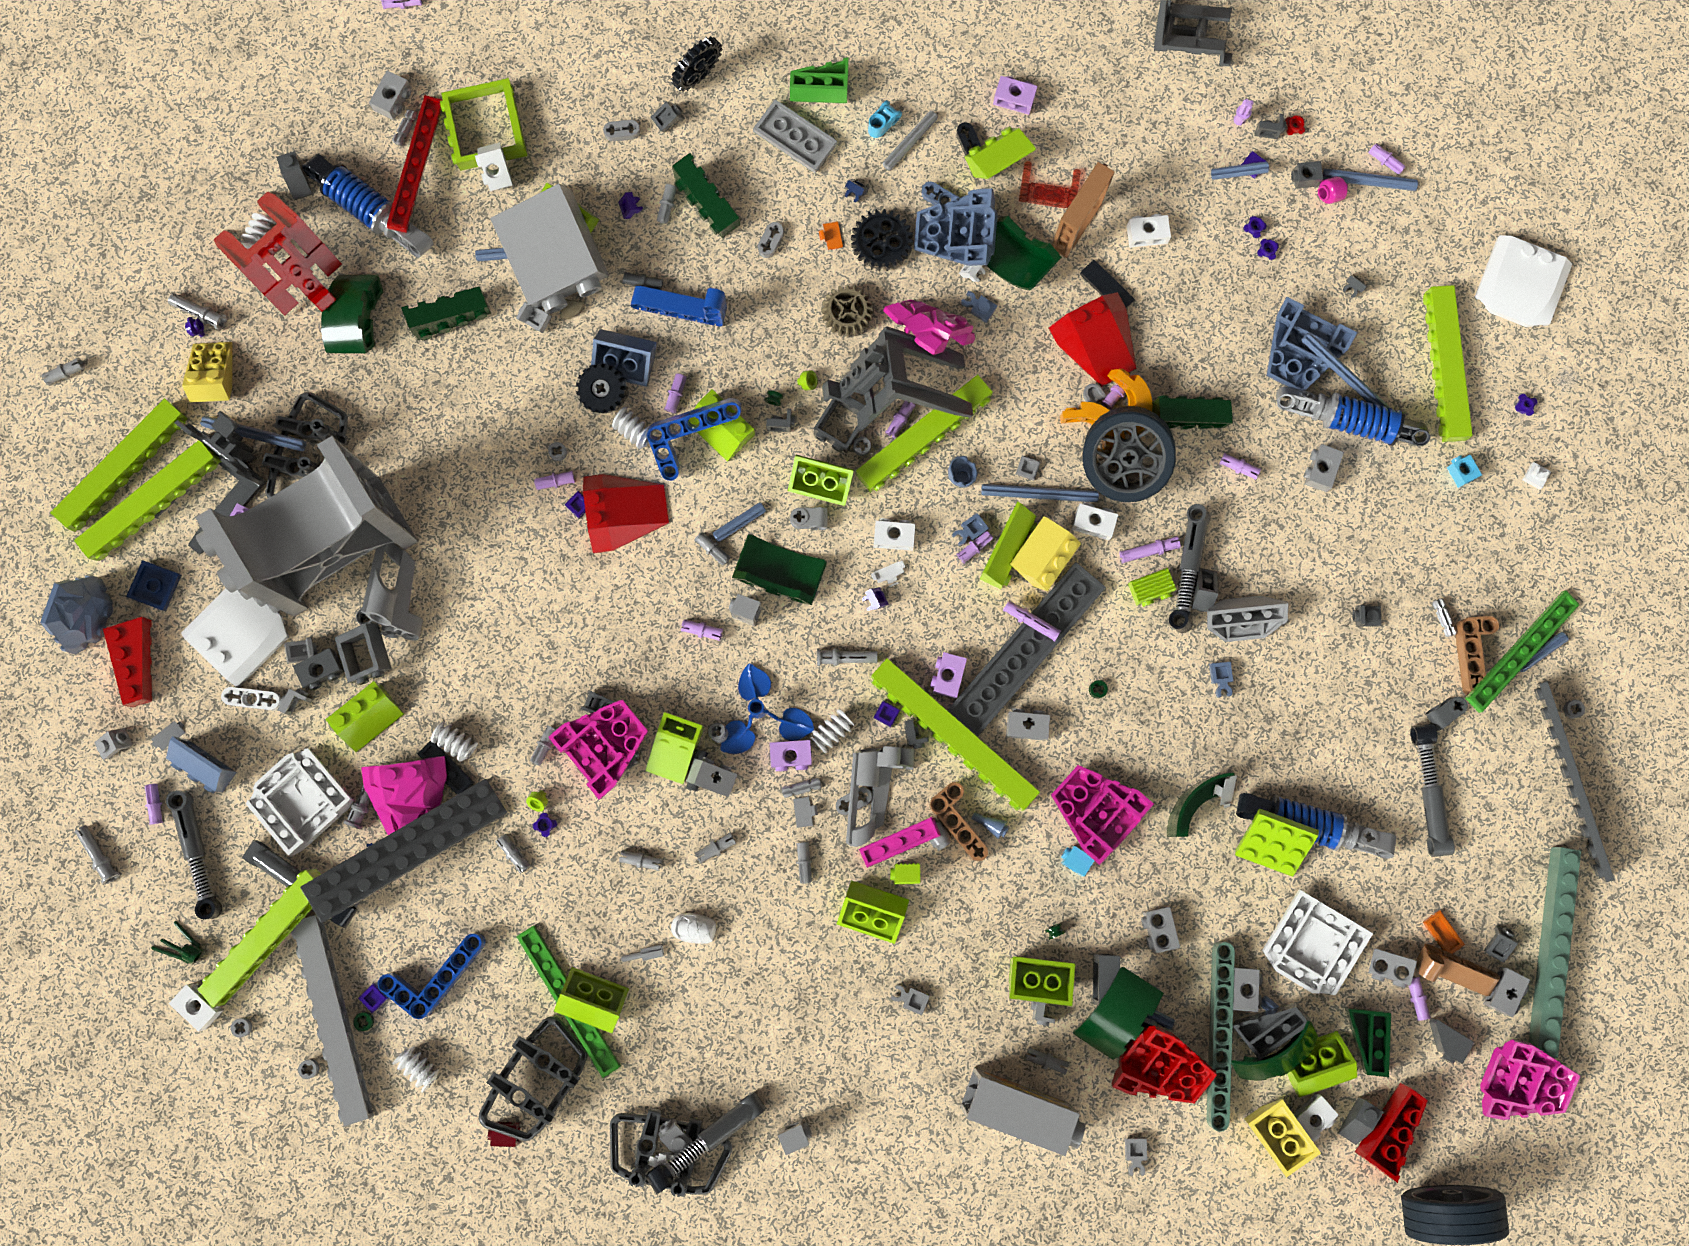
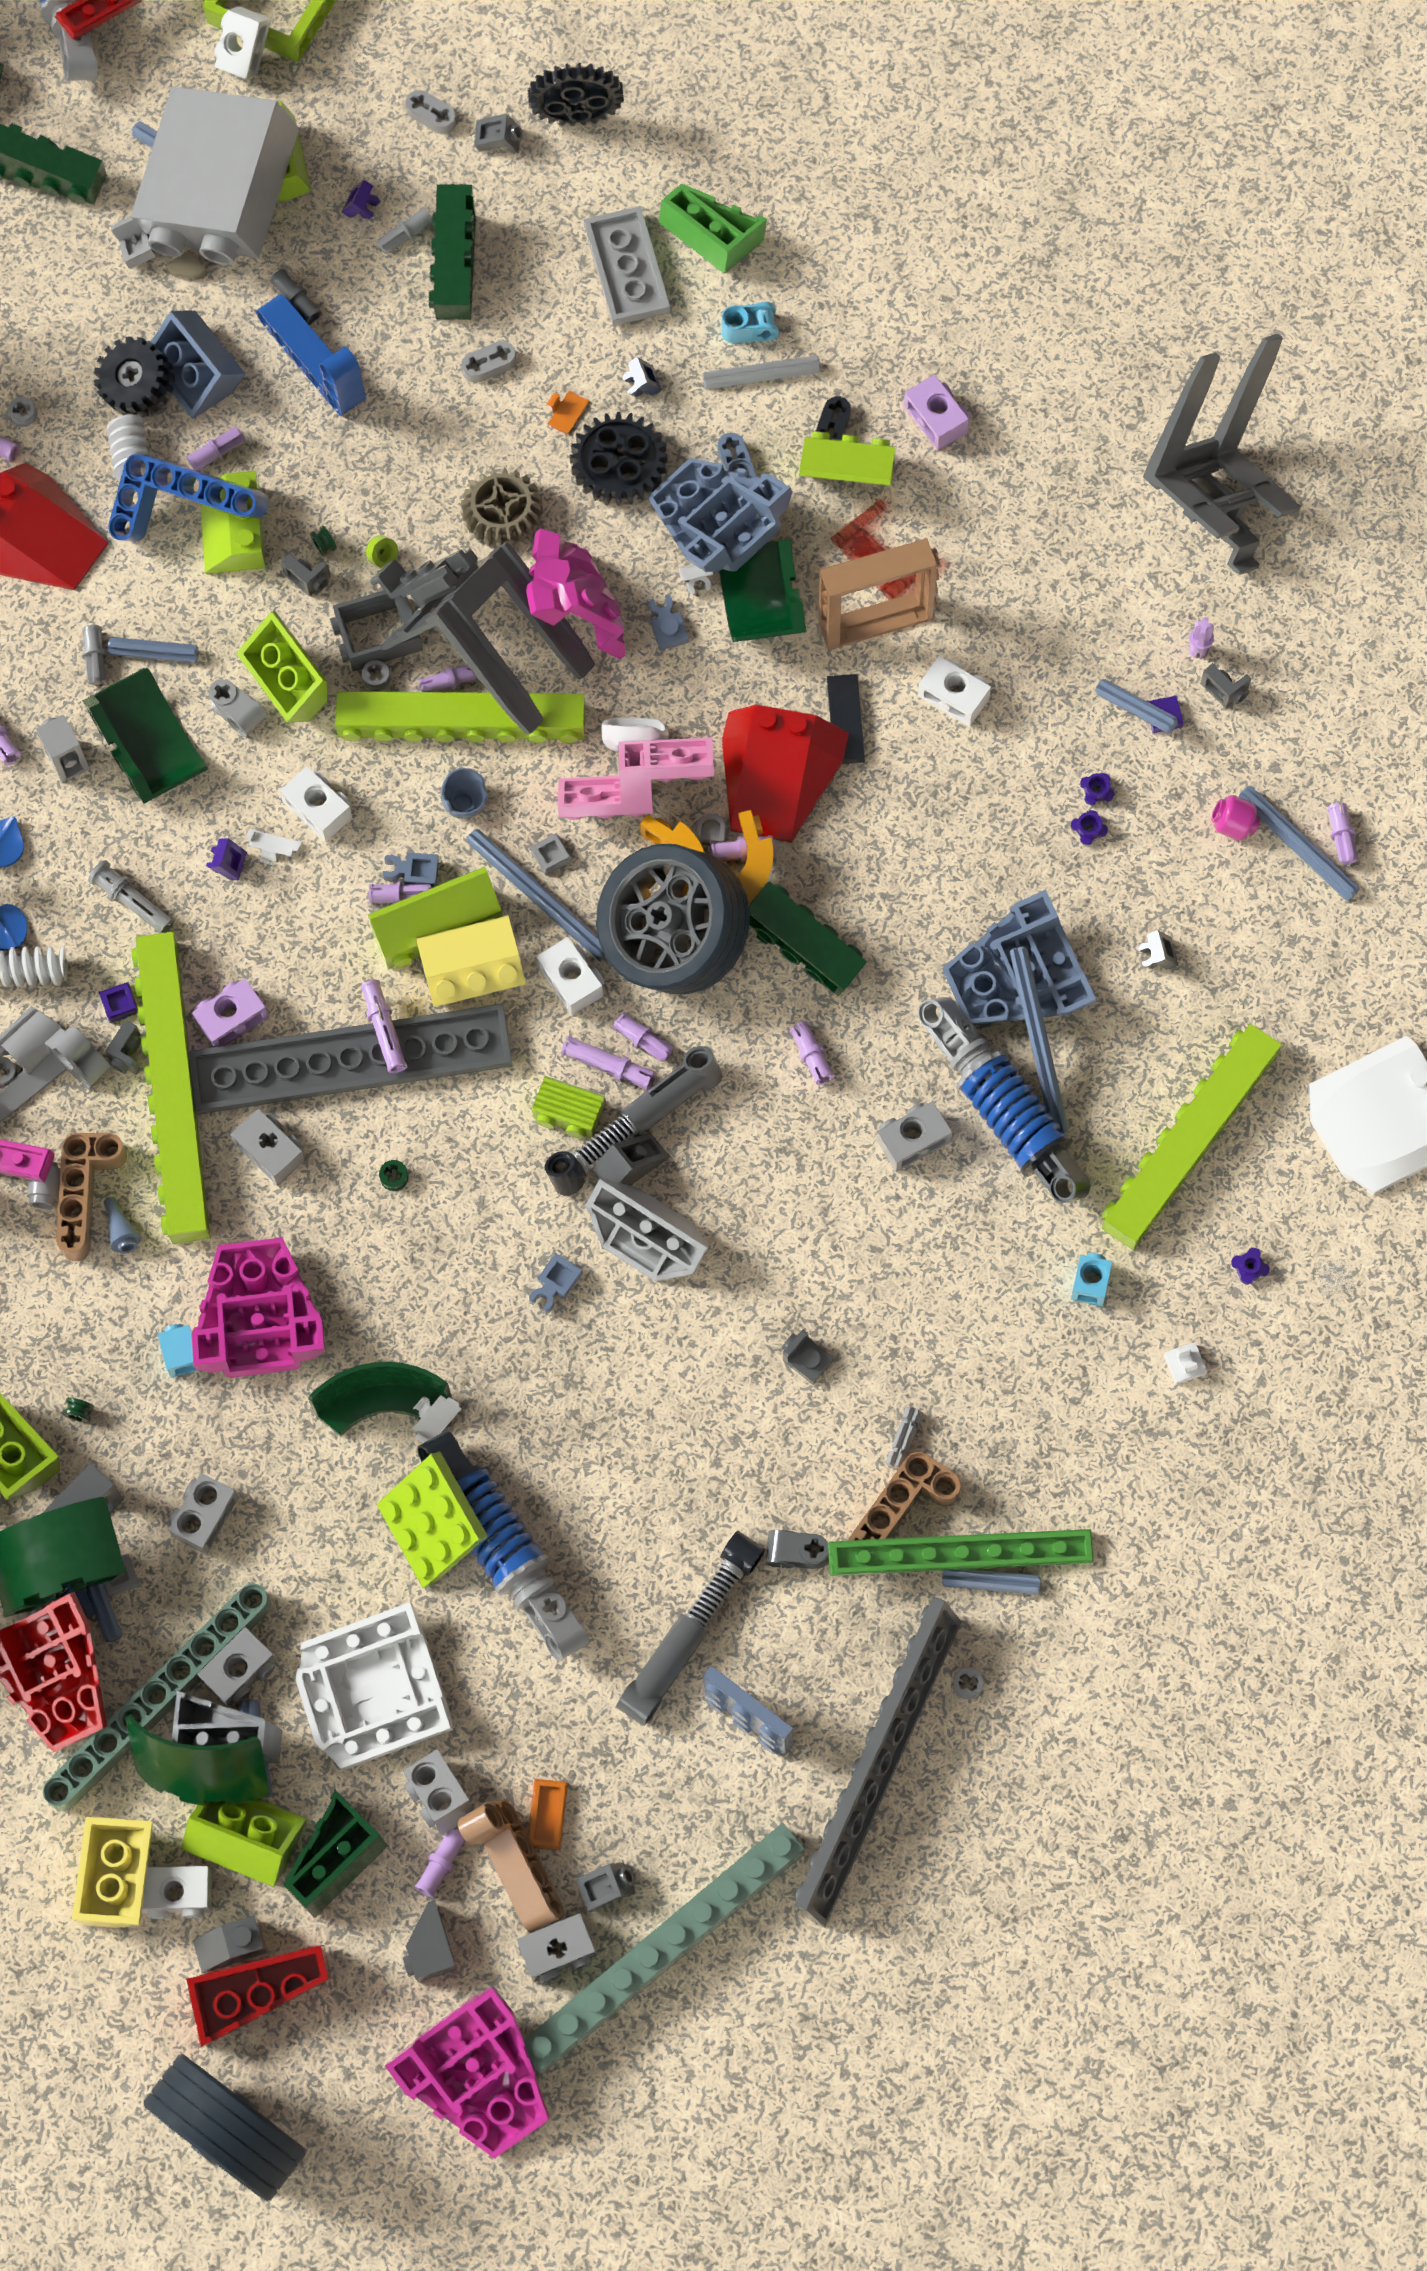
camera: 45 degrees right, 10 degrees down
(1017, 375) = (632, 729): none -> white piece
(1043, 396) = (632, 789): none -> bright pink bracket
(1154, 523) = (642, 1037): none -> lavender axle
(1299, 121) = (1264, 699): red plate -> none
(1314, 171) = (1219, 762): dark grey brick -> none
(1504, 810) = (747, 1712): none -> sand blue plate

